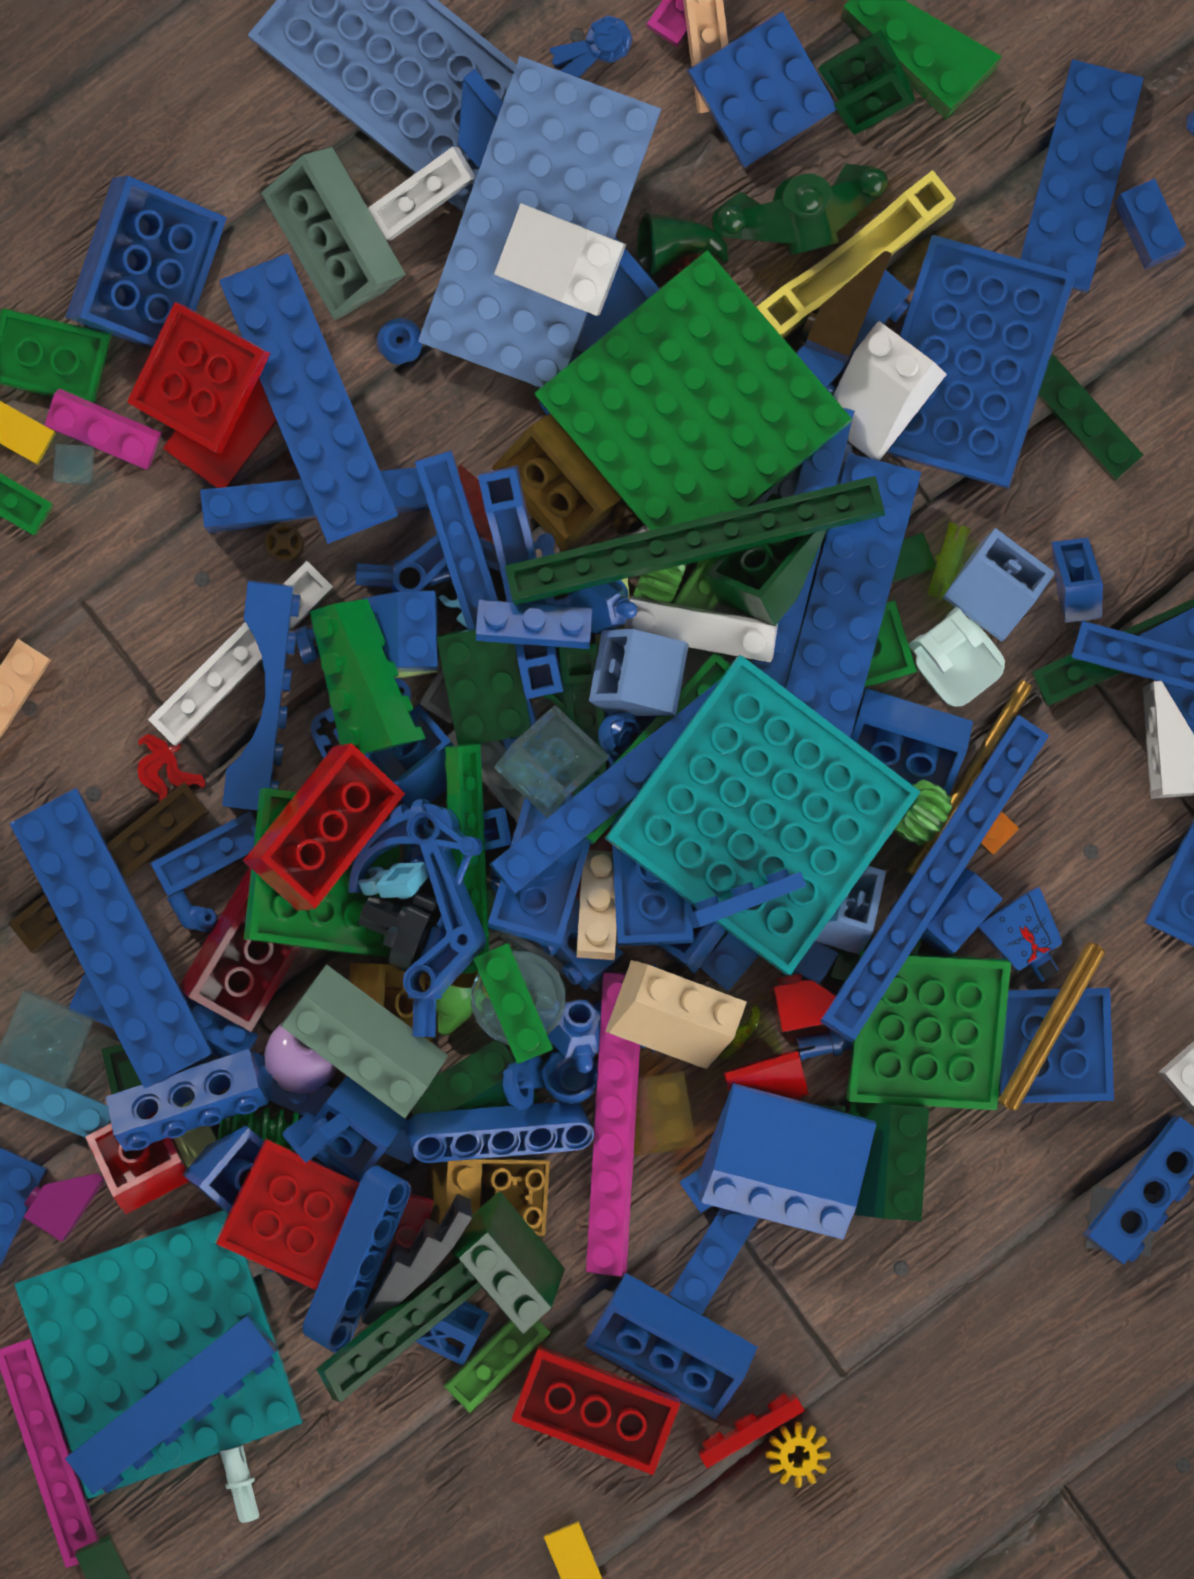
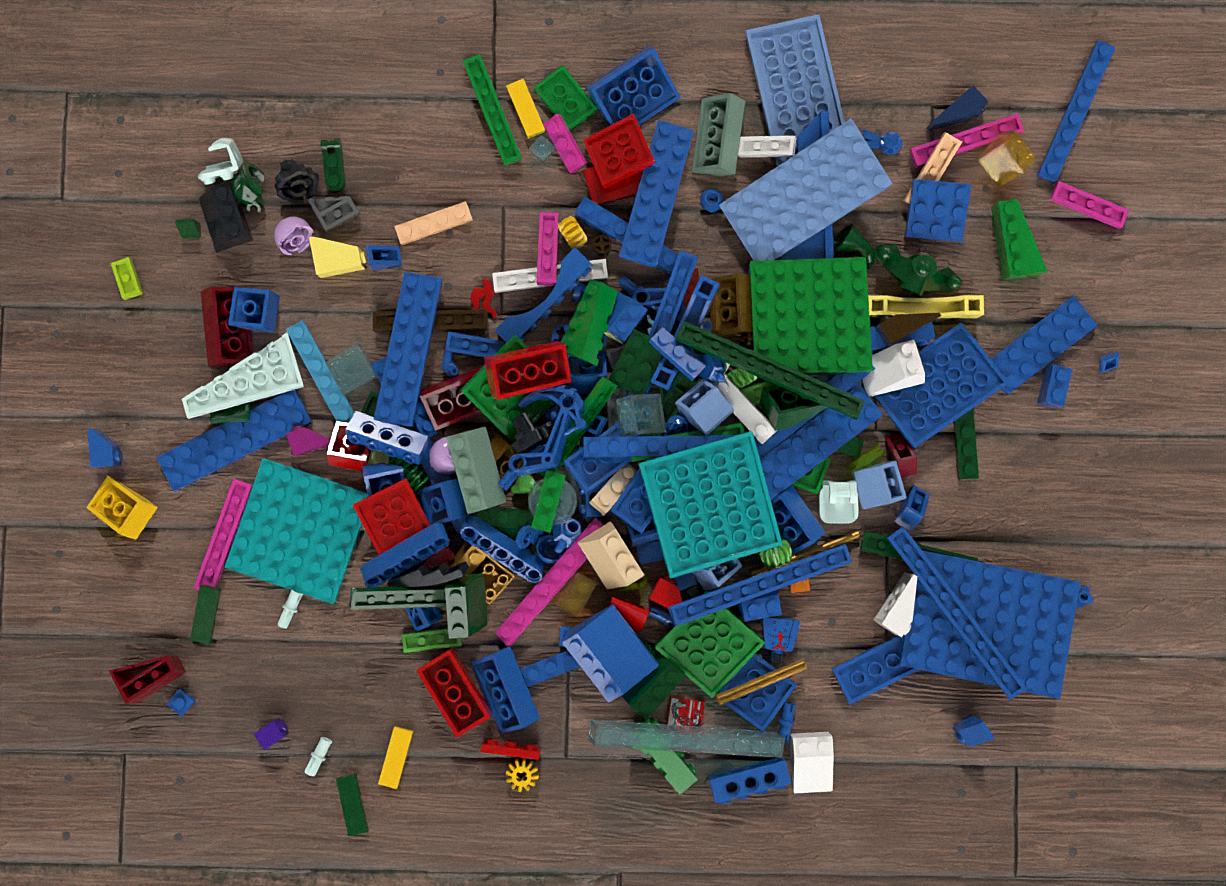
camera: 40 degrees right, 0 degrees up
(171, 1404) = (286, 556): blue brick -> none
(205, 614) = (547, 248): none -> dark pink plate
(224, 560) = (572, 232): none -> yellow gear
(312, 1138) = (424, 492): blue bracket -> none
(399, 881) = (541, 416): medium azure plate -> none
(560, 259) = (803, 214): white slope -> none
(745, 897) = (677, 532): blue plate -> none
(867, 82) = (983, 240): dark green slope -> none
(977, 1168) = (685, 712): none -> piece
(989, 1253) = (673, 765): none -> wedge
(998, 509) = (902, 452): none -> dark red slope
(1002, 1200) = (685, 738): none -> clear light blue brick
(1139, 1058) = (786, 722): none -> blue pin

